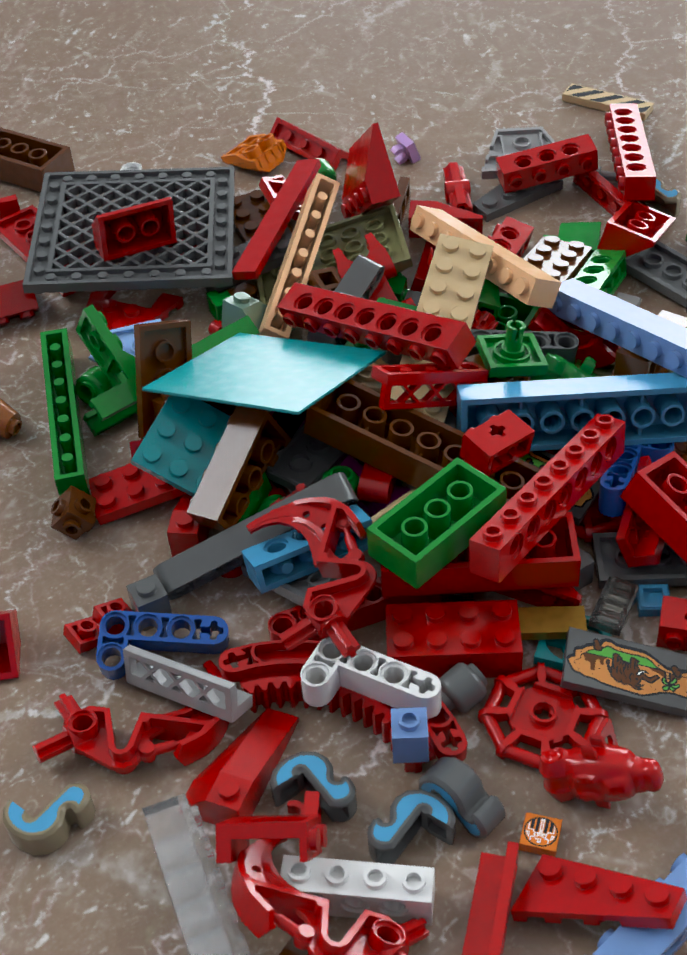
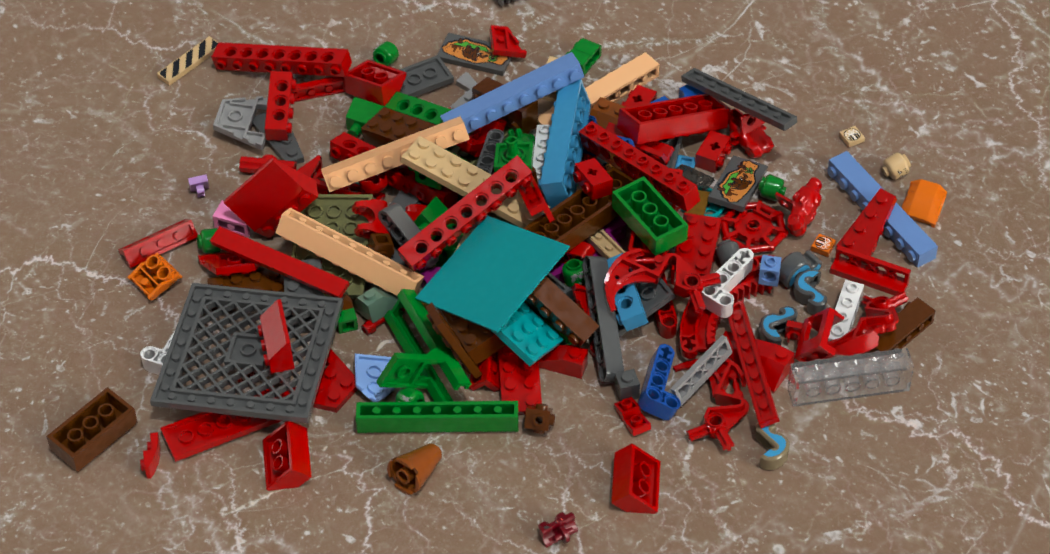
camera: 80 degrees left, 5 degrees up
(202, 752) = (752, 366): none -> red tile
(642, 724) = (770, 185): none -> green head

